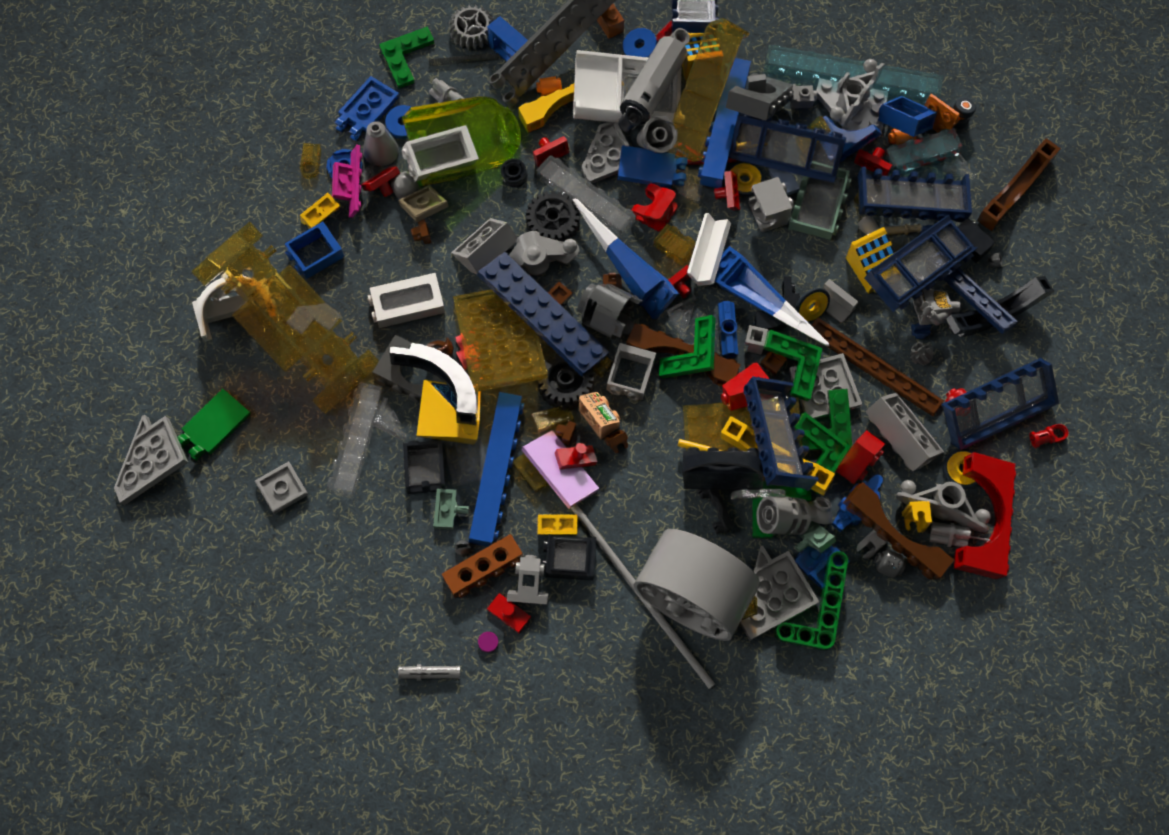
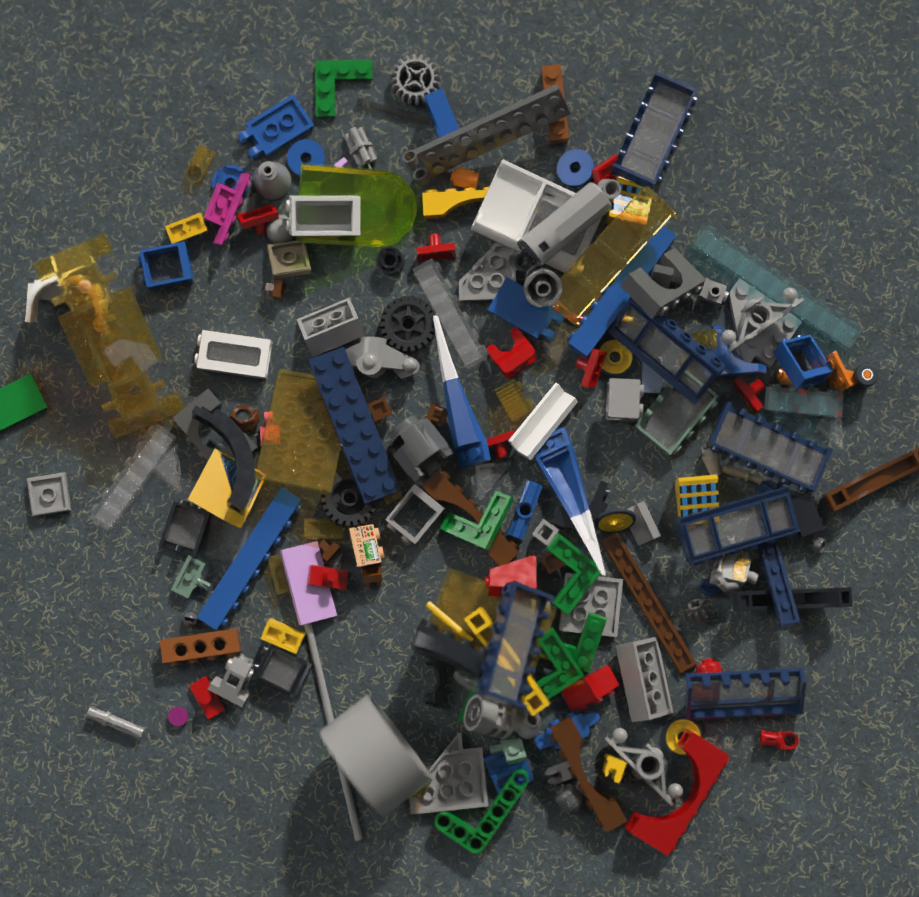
camera: 25 degrees right, 15 degrees up
(951, 534) = (639, 794): light grey piece -> none

